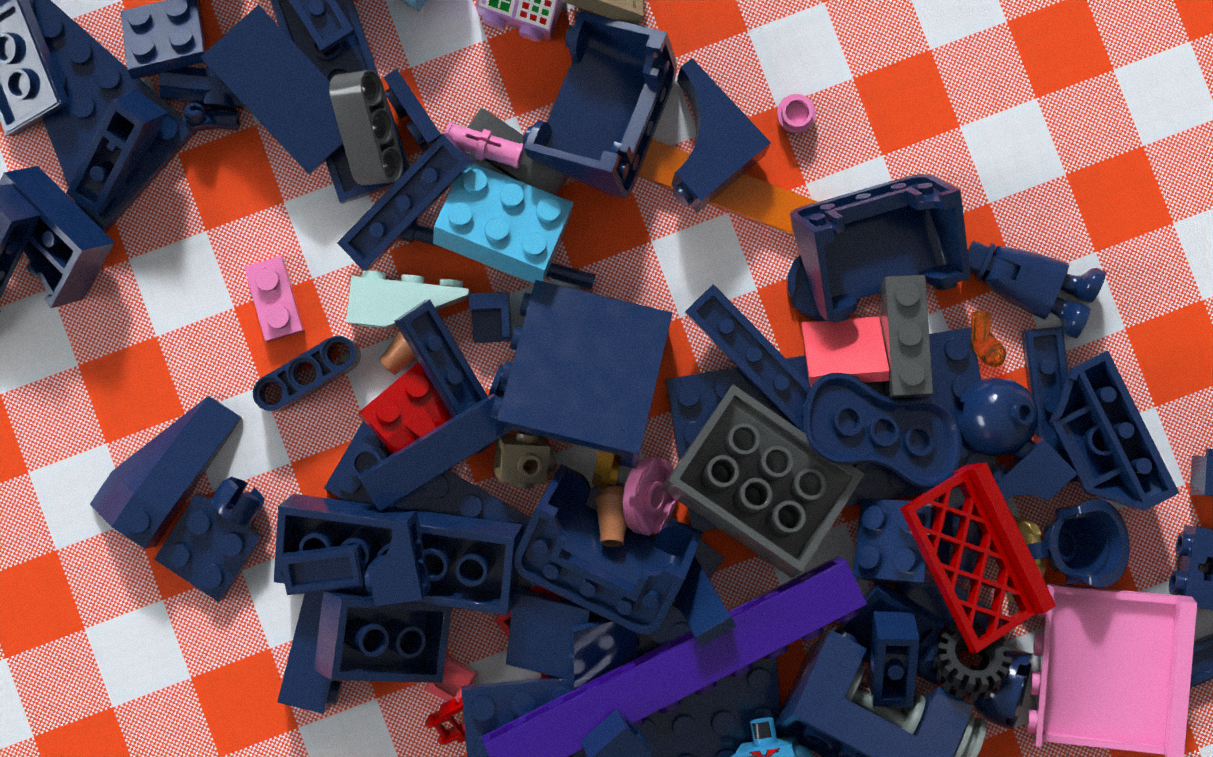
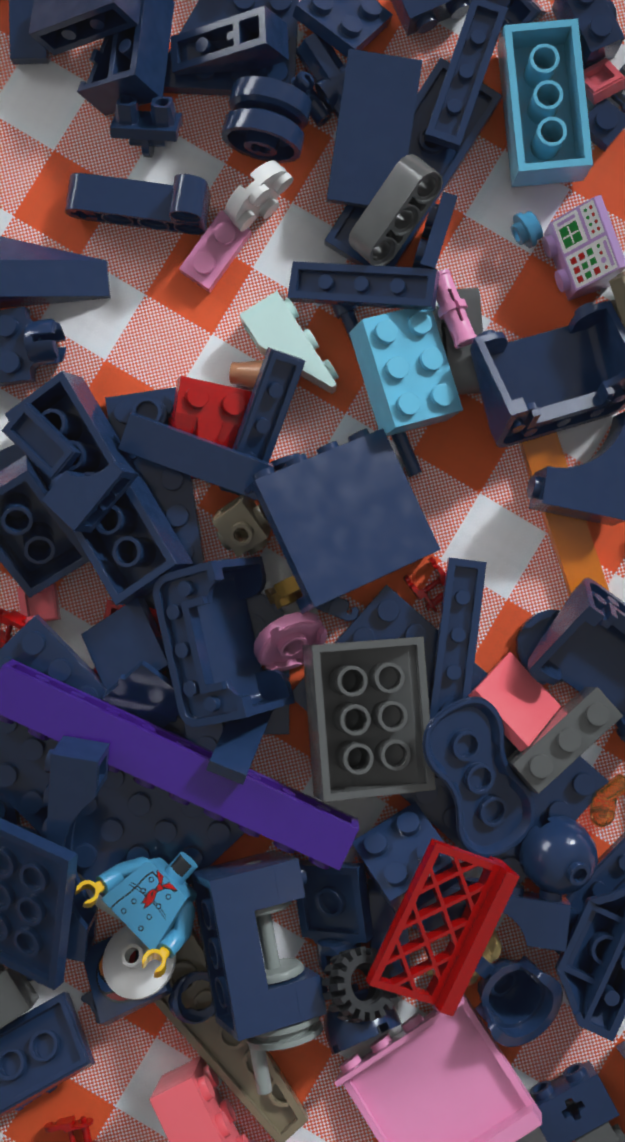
camera: 55 degrees right, 0 degrees up
(125, 274) = (146, 128): none -> dark blue hips
(184, 330) = (141, 203): none -> dark blue beam
(202, 170) = (266, 119): none -> dark blue wheel
(260, 226) = (259, 196): none -> white plate
(288, 379) = (166, 305): dark blue beam -> none
(464, 28) = (526, 229): none -> dark azure plate
(491, 317) = (329, 418): dark blue panel -> none
(610, 516) = (251, 624): nougat cone -> none
(654, 434) = (339, 608): none -> dark blue piece
(696, 356) = (420, 594): none -> red piece
(893, 659) = (314, 923): dark blue brick -> none

